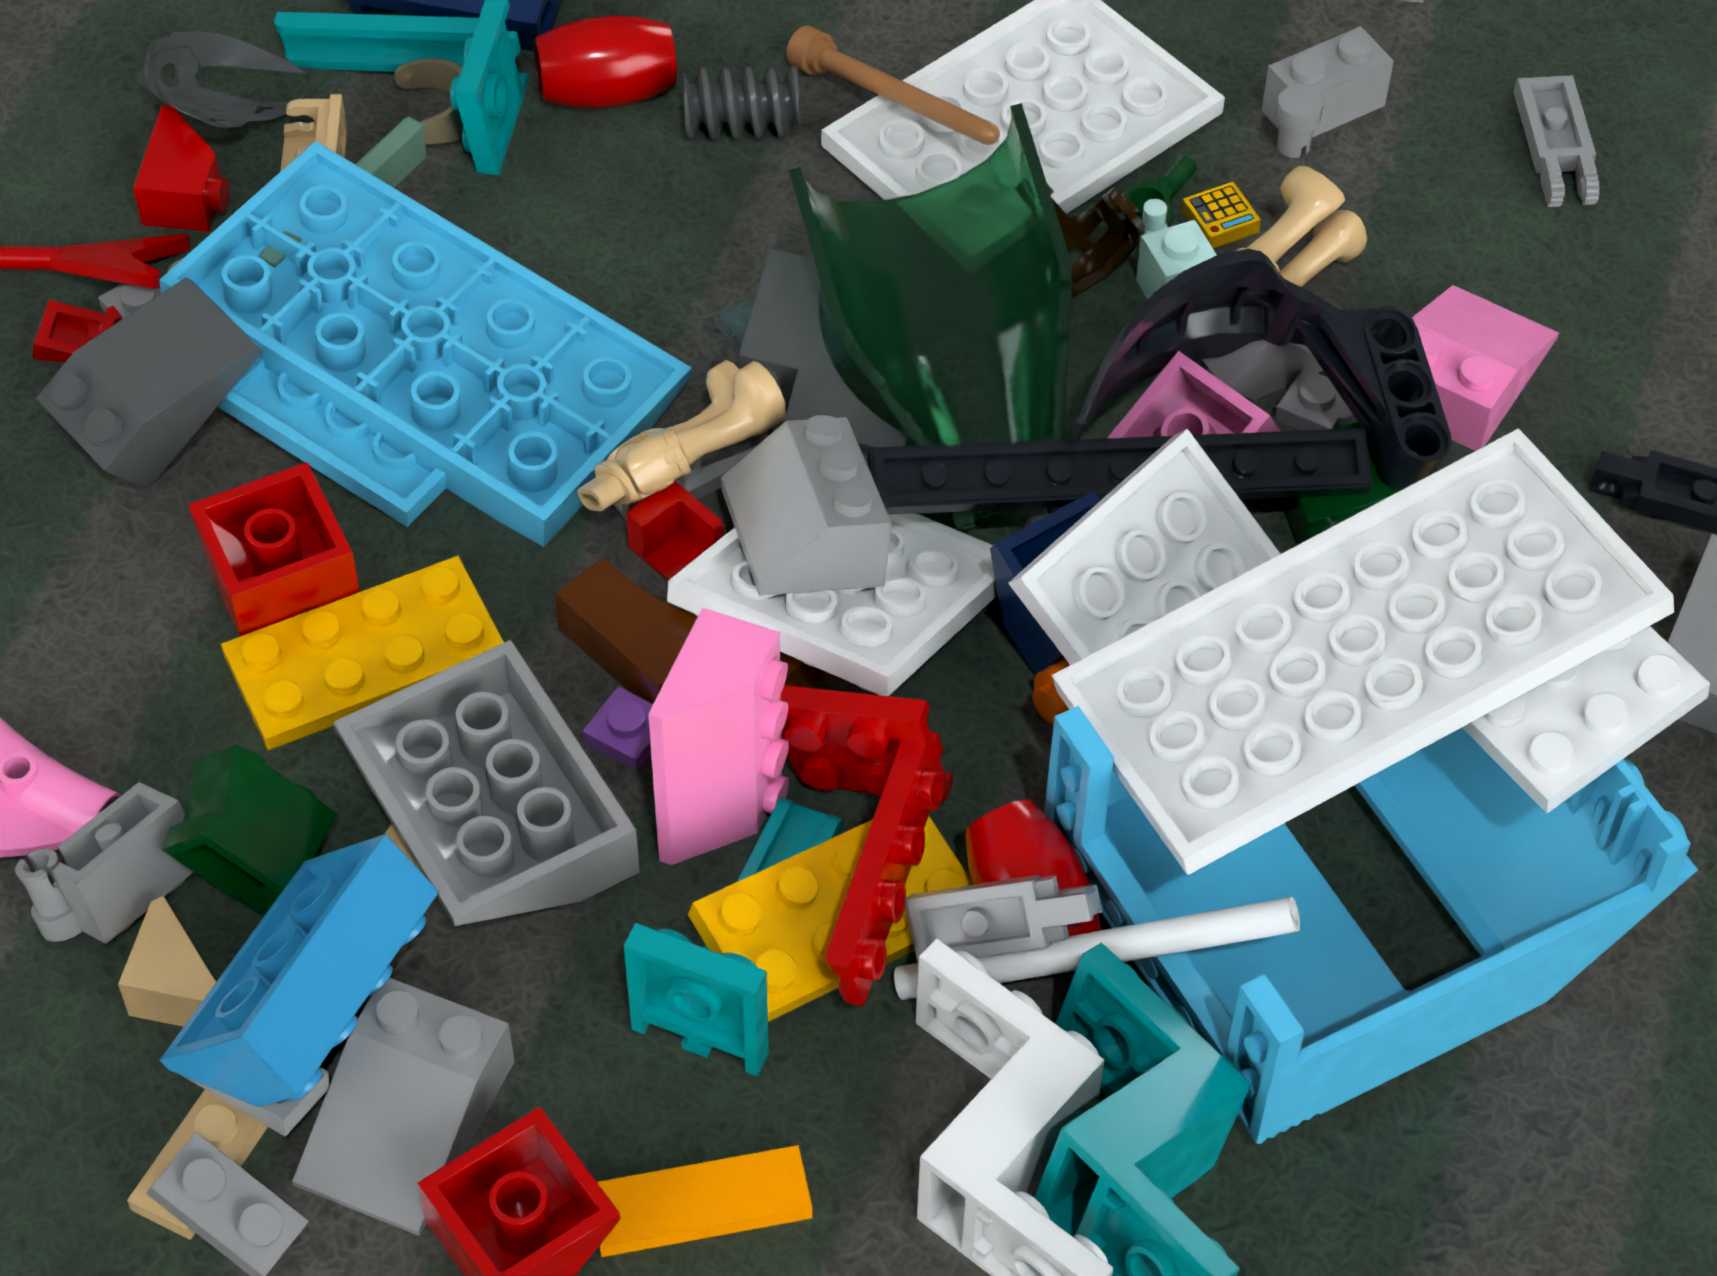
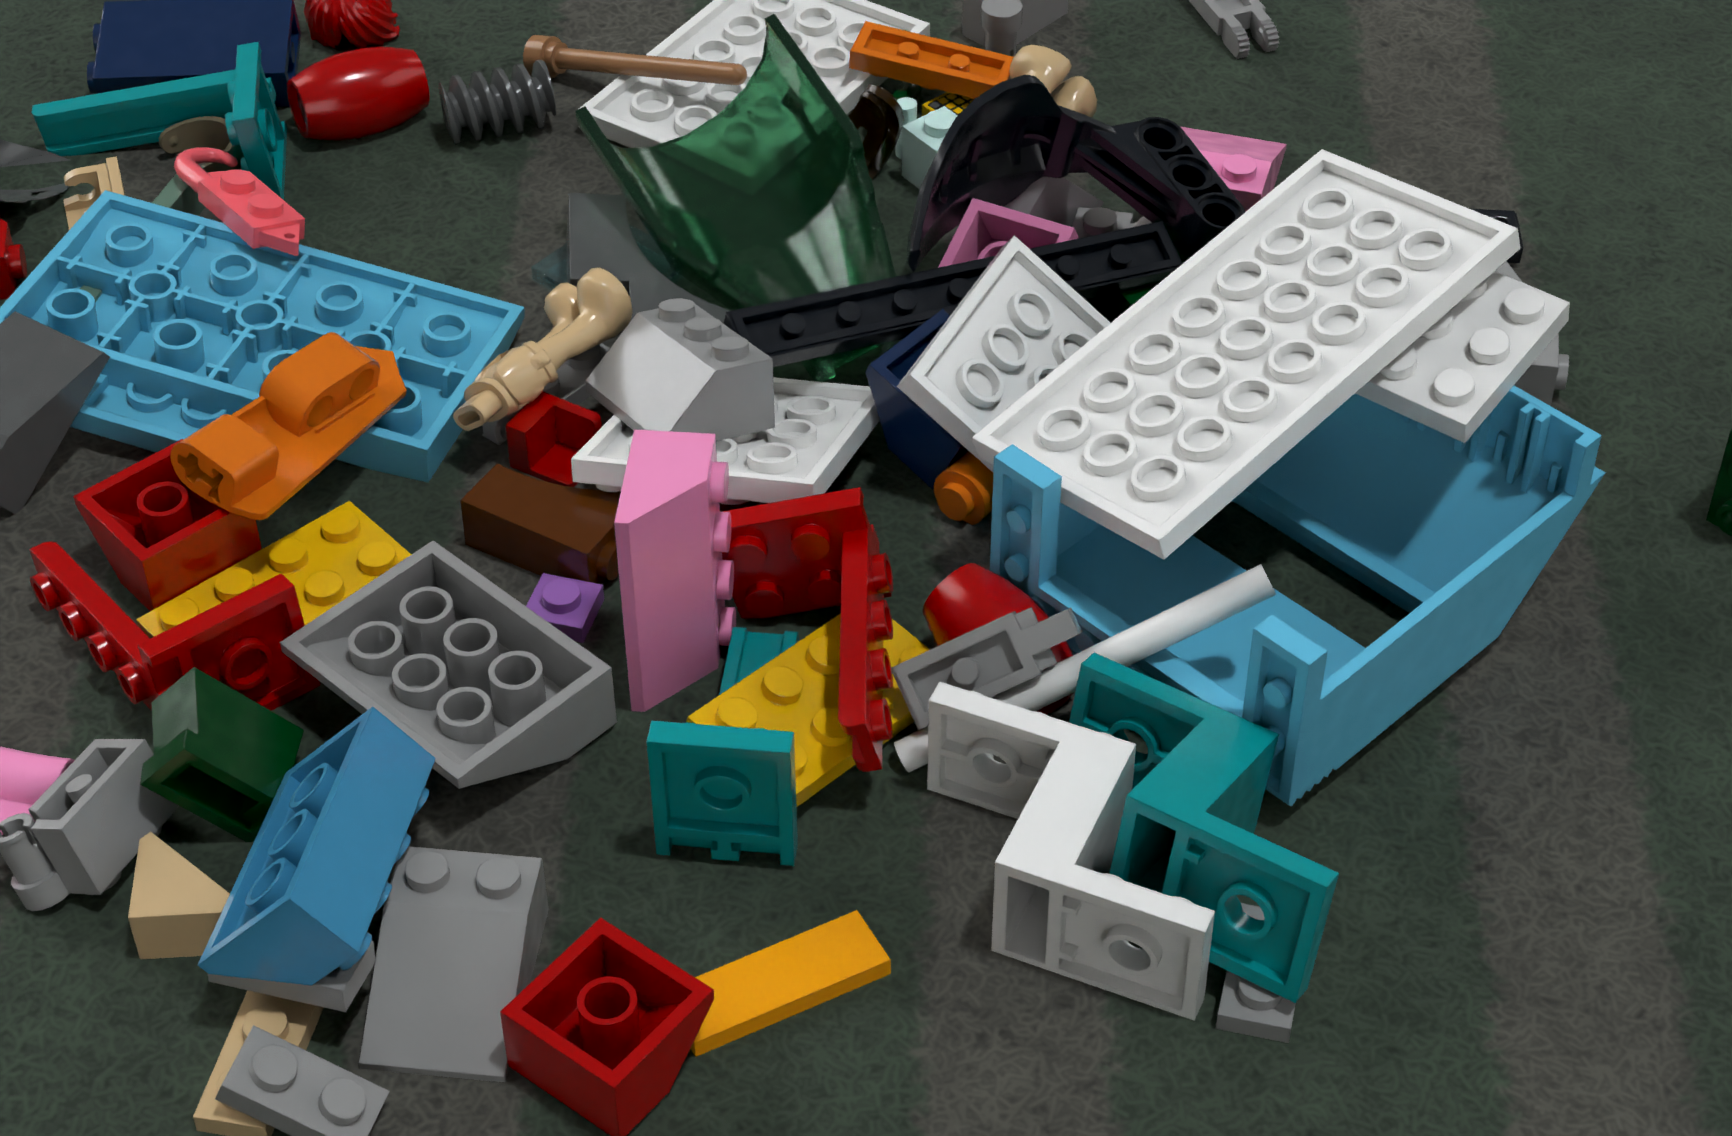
camera: 15 degrees left, 10 degrees down
(278, 718) = (228, 642): none -> red bracket
(417, 477) = (295, 428): none -> orange panel
(445, 183) = (241, 201): none -> coral plate
(1204, 154) = (927, 61): none -> orange plate

